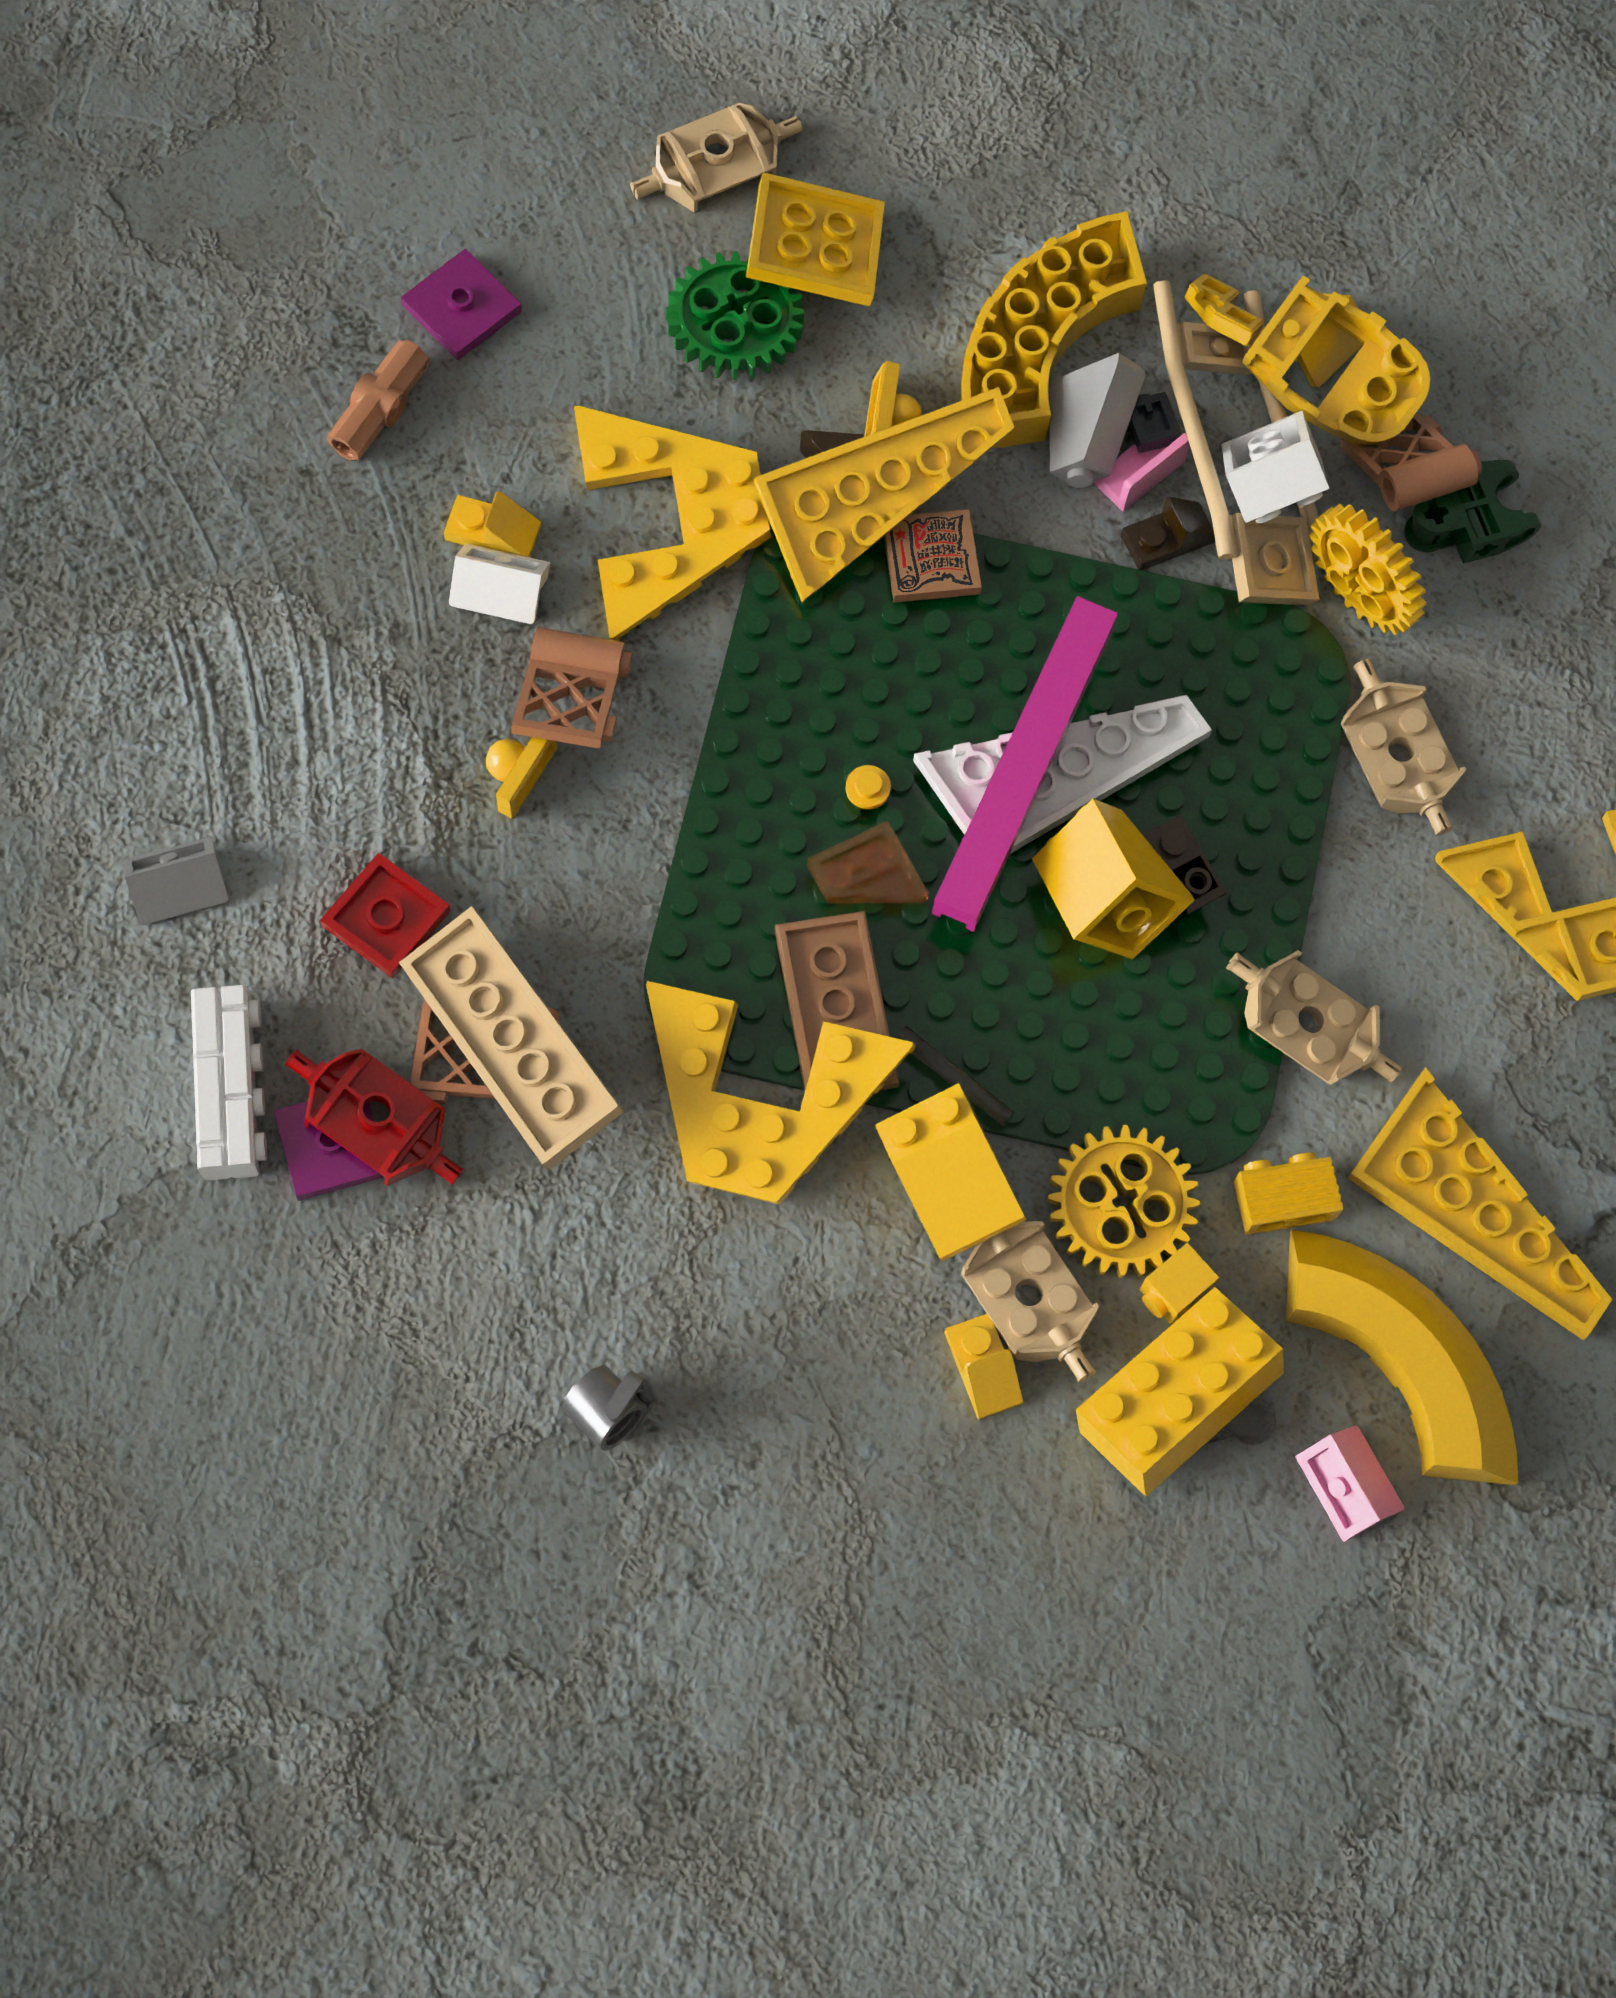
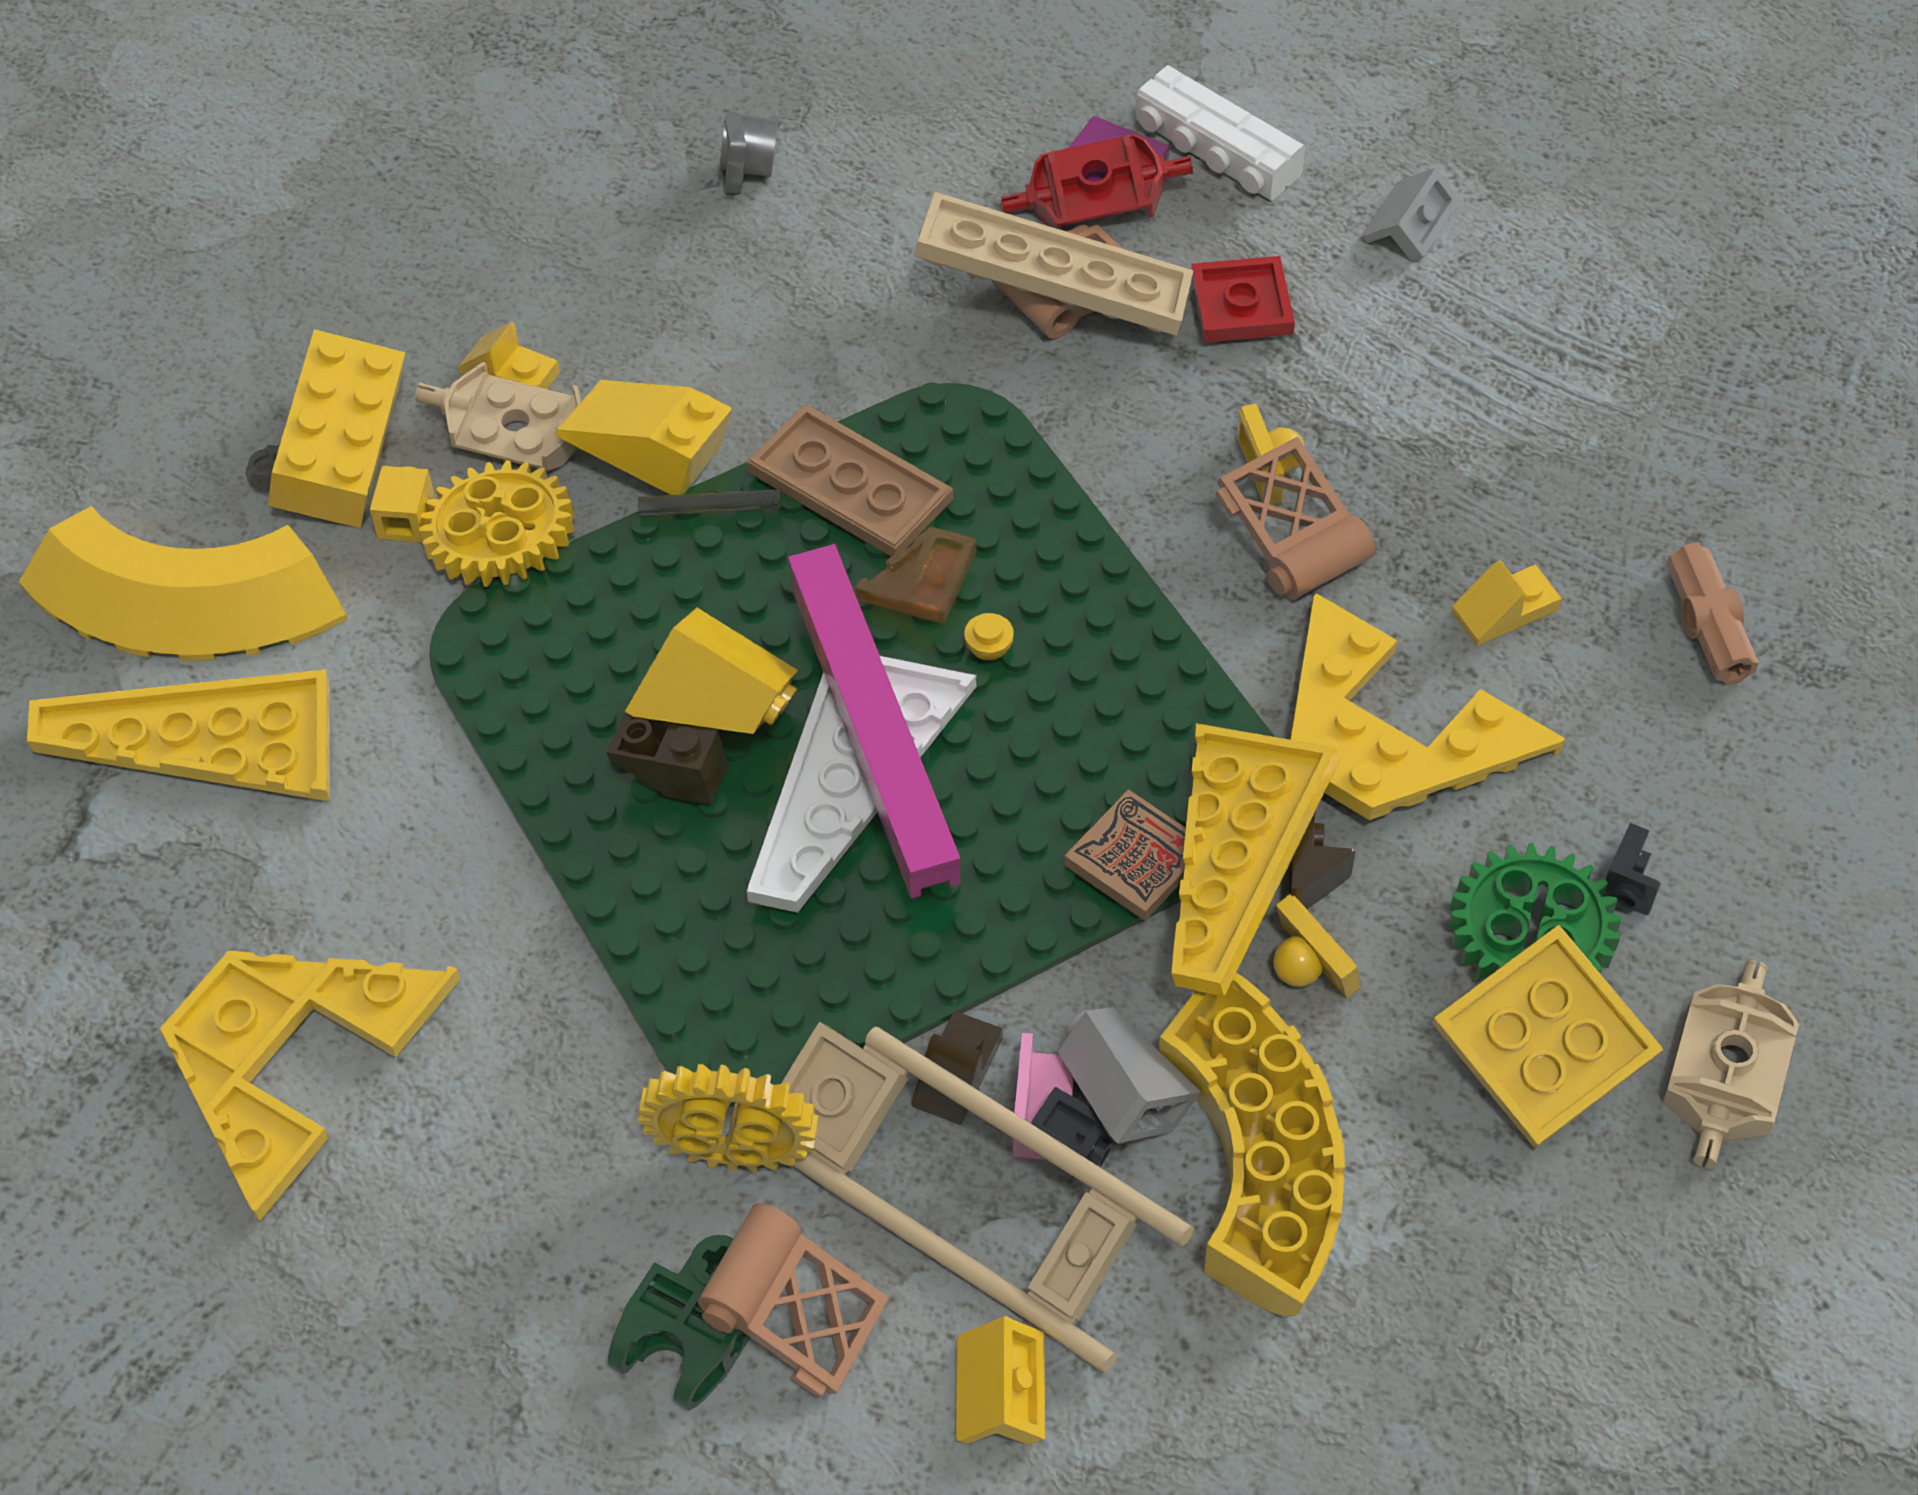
camera: 145 degrees right, 15 degrees down
(461, 304) = (1758, 749): magenta plate -> none
(497, 583) = (1450, 567): white panel -> none
(643, 298) = (1626, 873): none -> black bracket
(749, 1143) = (840, 348): yellow wing -> none
(1216, 306) = (1103, 1281): yellow tile -> none
(1274, 468) = (901, 1132): white brick -> none
(1287, 1194) = (367, 621): yellow brick -> none
(1345, 1030) = (418, 752): tan plate -> none
(1349, 1482) = (153, 488): bright pink panel -> none
(1376, 390) = (886, 1332): yellow slope -> none
(1398, 715) = (539, 1012): tan plate -> none

